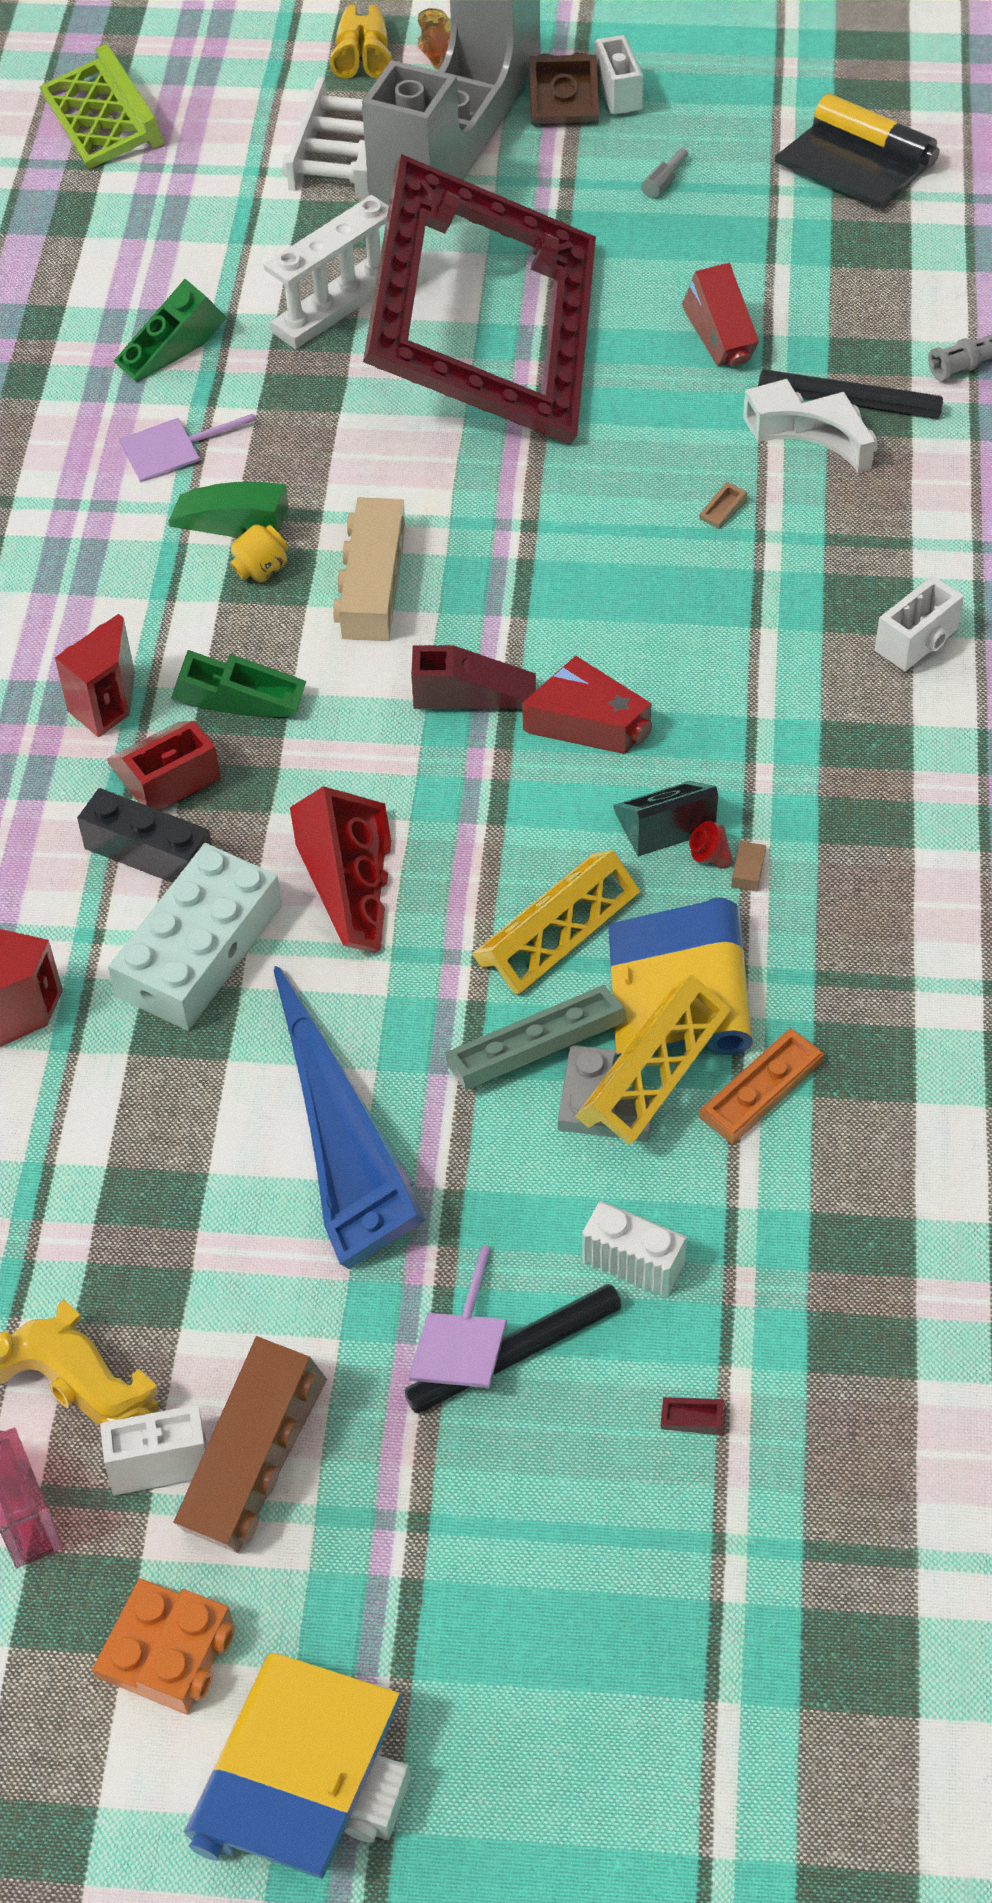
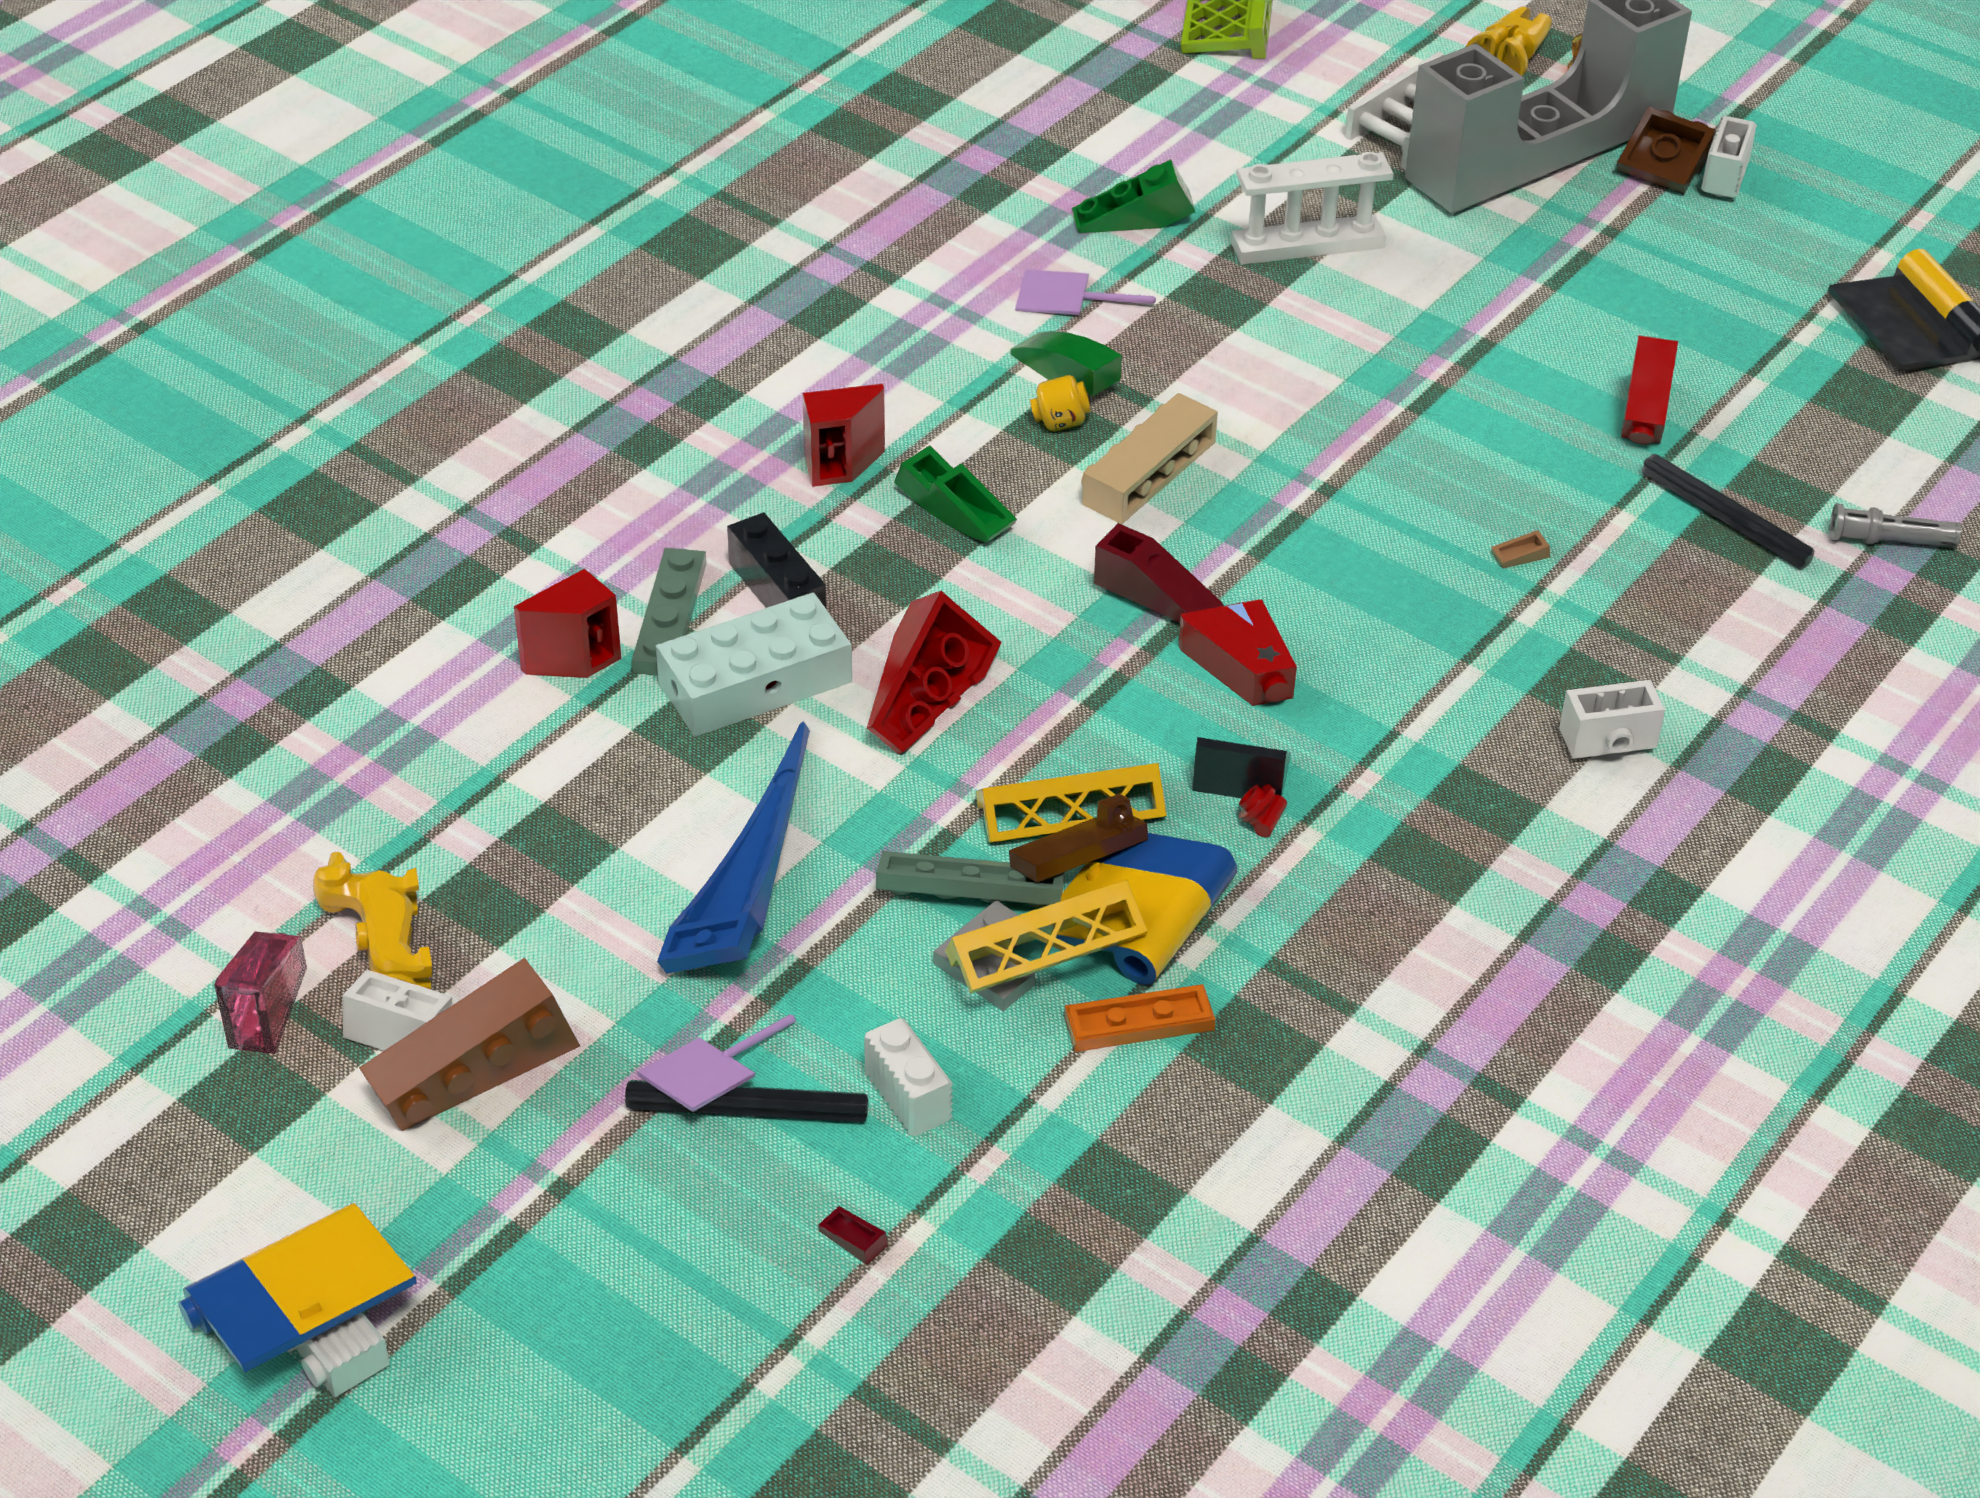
camera: 30 degrees right, 10 degrees down
(71, 921) = (669, 605): none -> sand green plate
(165, 1645) = (287, 1160): orange plate -> none
(167, 765) = (841, 529): red slope -> none
(562, 252) = (1429, 173): dark red plate -> none
(603, 957) = (1082, 843): none -> reddish brown hinge
(662, 175) = (1706, 258): light grey axle -> none
(748, 866) = (1283, 844): medium nougat piece -> none
(830, 421) = (1675, 519): white arch -> none

